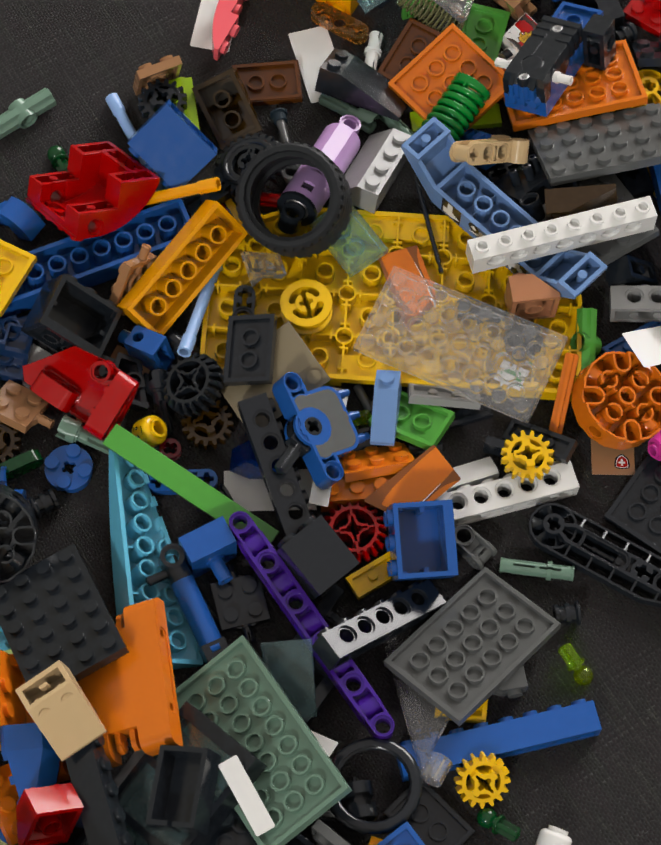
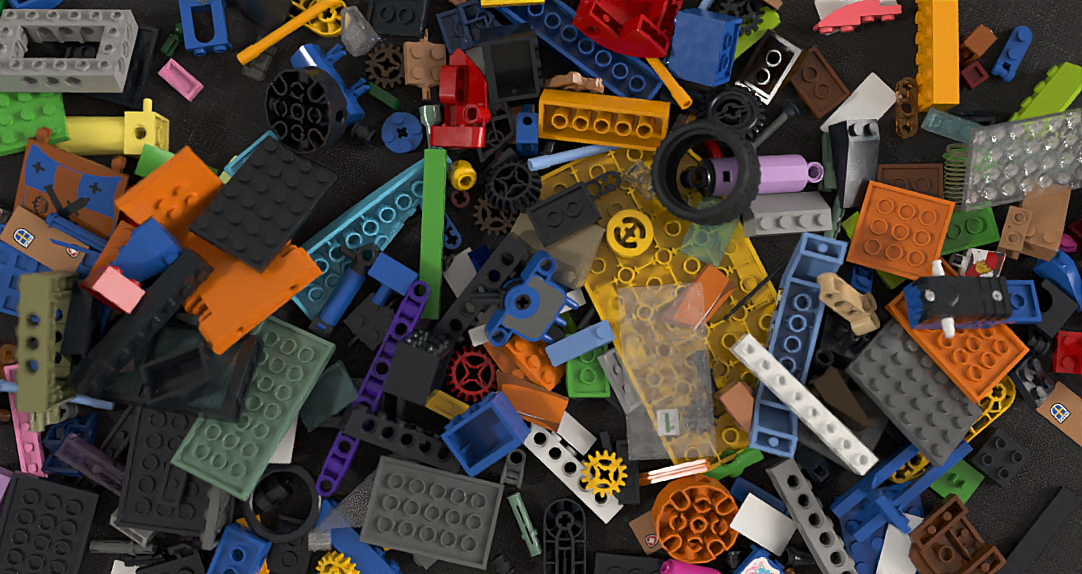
camera: 60 degrees right, 20 degrees up
(61, 710) = (182, 254): tan slope -> none
(246, 795) = (201, 425): white sticker -> none
(373, 51) = (895, 149): white pin -> none
(459, 104) = (864, 244): green piece -> none
(599, 41) = (1009, 333): black brick -> none

